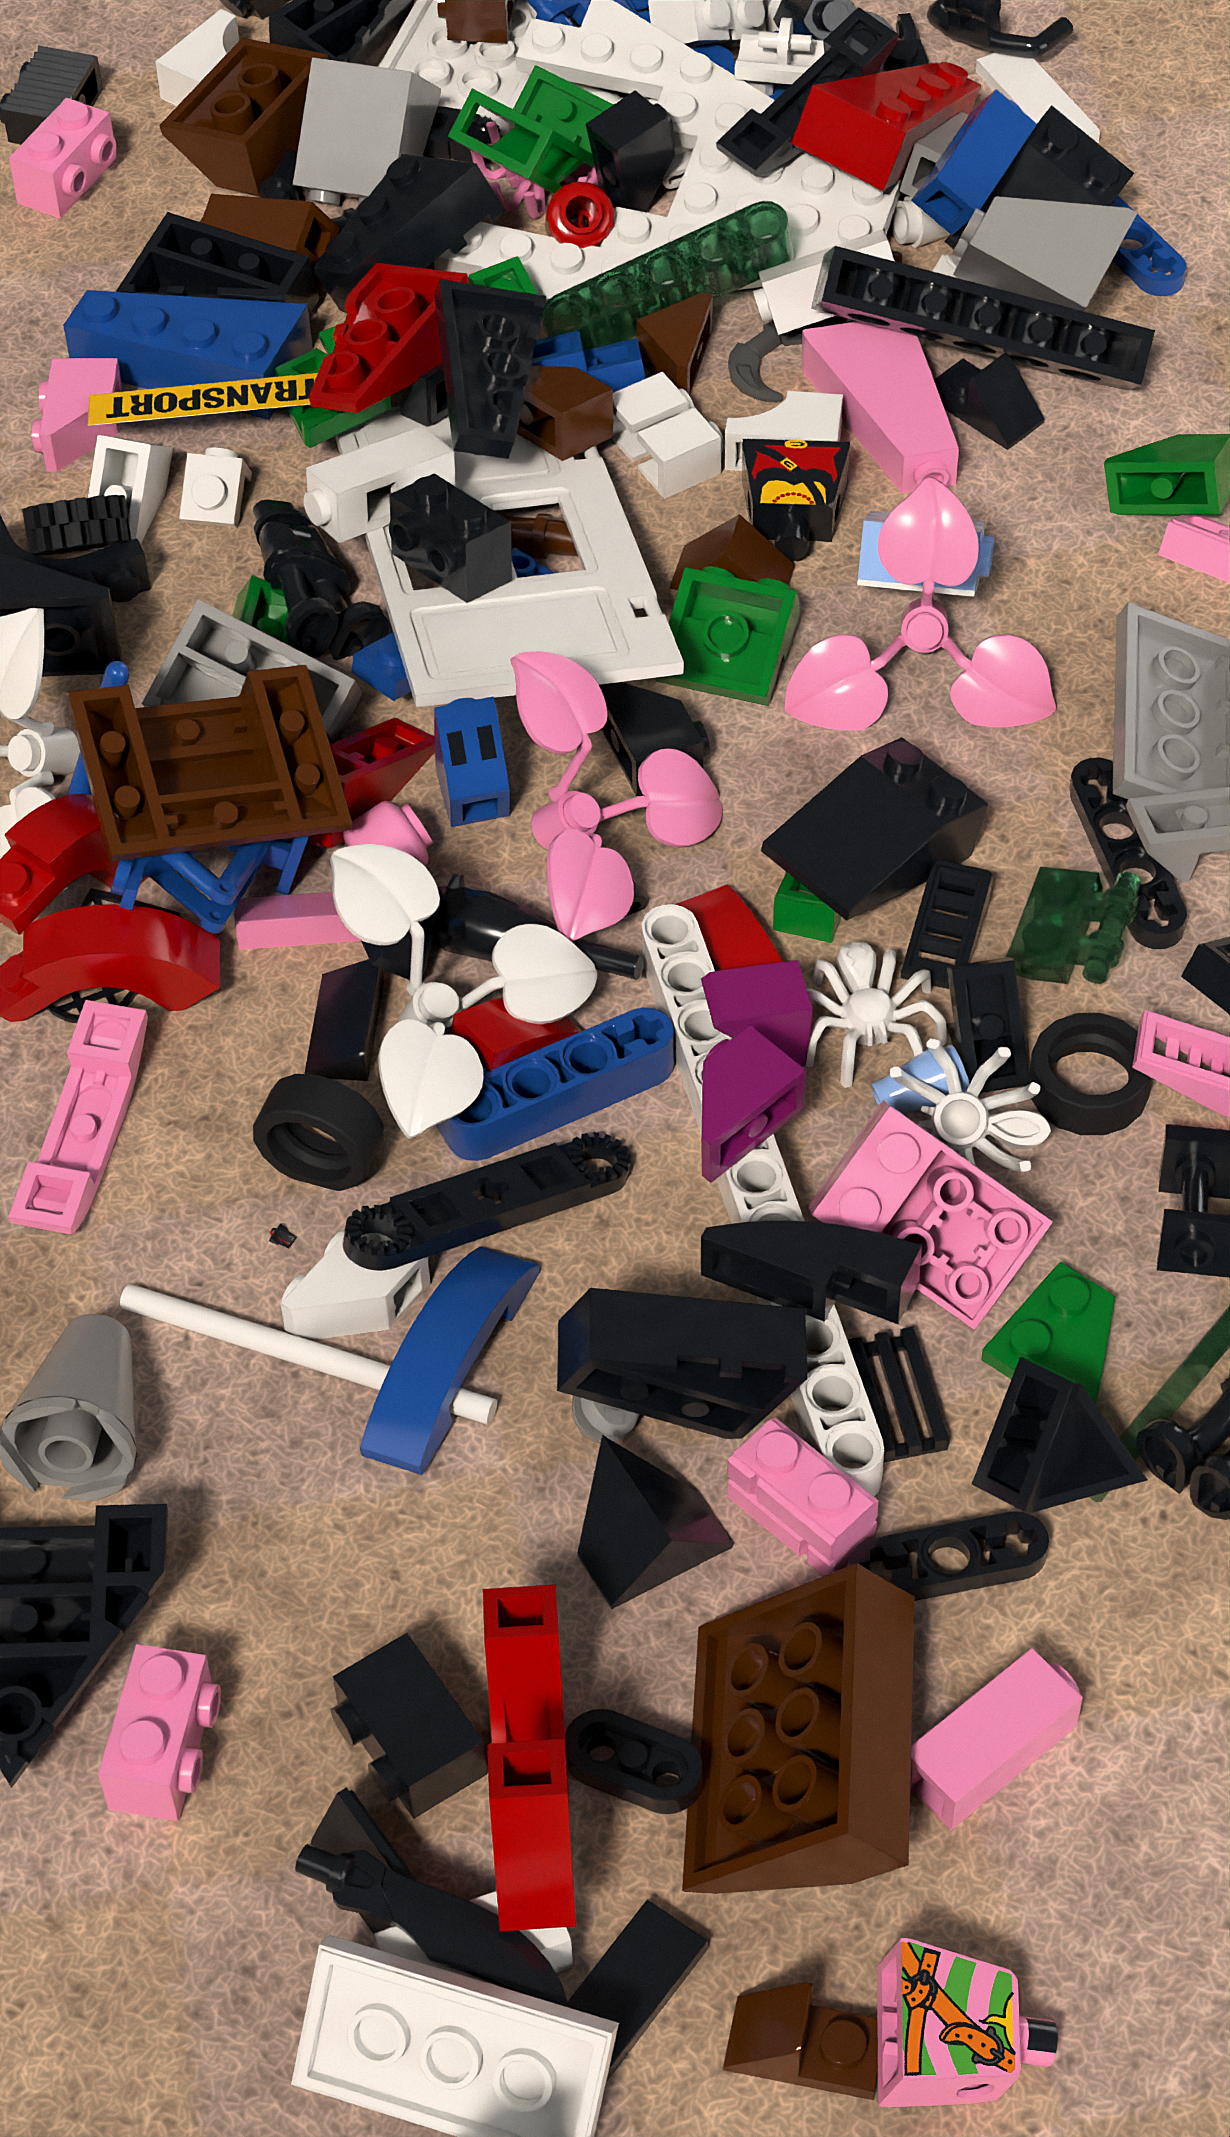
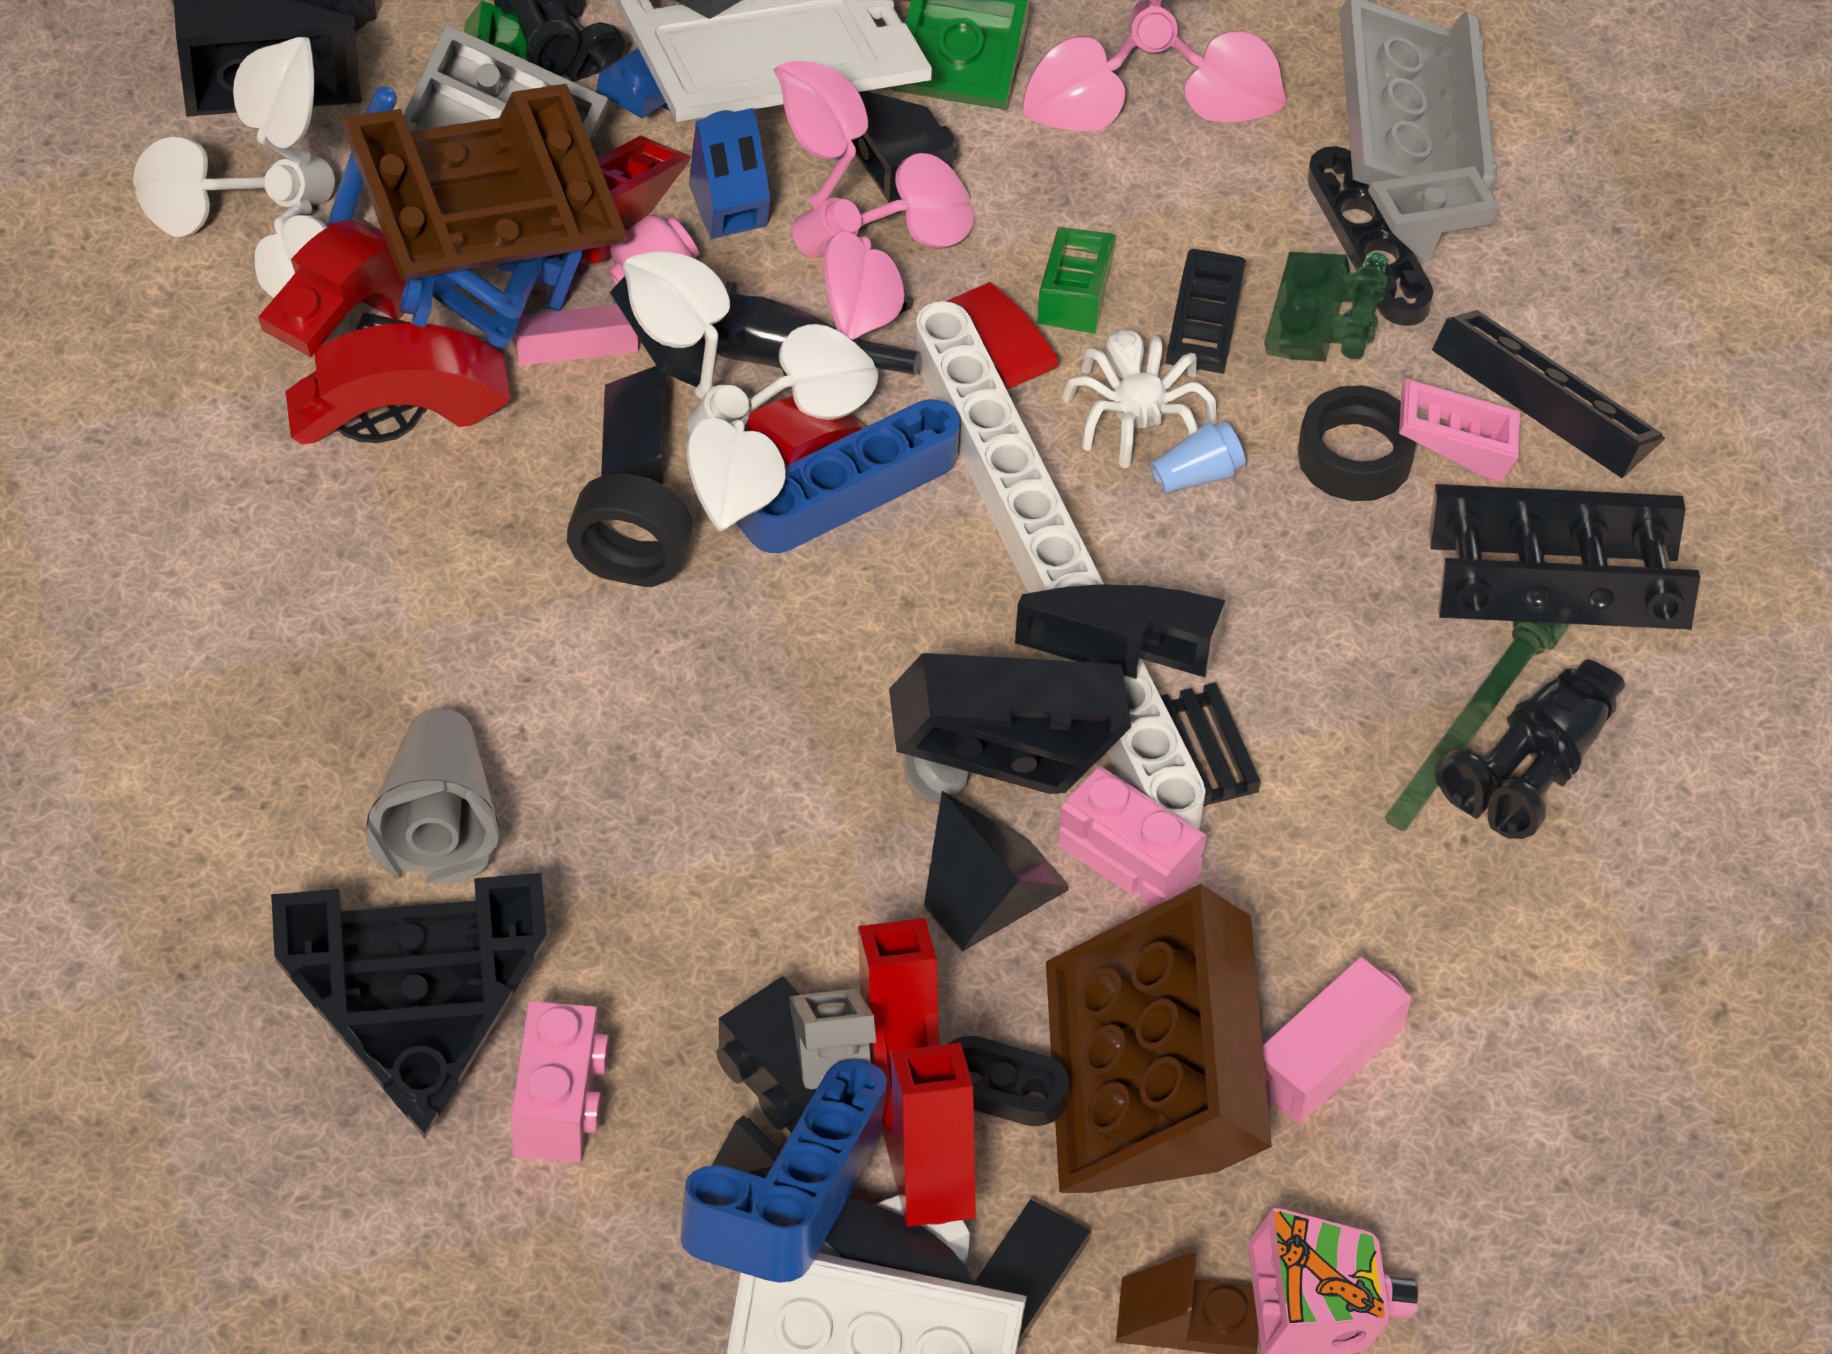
camera: 10 degrees left, 0 degrees up
(86, 1121) = (395, 529): bright pink slope -> none
(282, 1235) = (601, 632): black piece -> none
(284, 1346) = (762, 765): white bar -> none
(349, 1299) = (685, 672): white slope -> none
(358, 1923) = (781, 1221): none -> blue beam
(438, 1353) = (771, 732): blue slope -> none
(446, 1708) = (830, 1030): none -> light grey slope
(452, 1215) = (799, 586): black piece -> none
(745, 1098) = (1040, 476): magenta slope -> none
(768, 999) = (1045, 395): magenta slope -> none
(878, 829) = (1132, 222): black slope -> none
(926, 1193) = (1214, 550): bright pink slope -> none
(963, 1536) = (1285, 868): black beam -> none
(964, 1119) = (1244, 490): white animal -> none
(988, 1018) = (1257, 400): black slope -> none
(1051, 1444) = (1358, 777): black slope -> none
(1059, 1327) = (1351, 690): green wing -> none

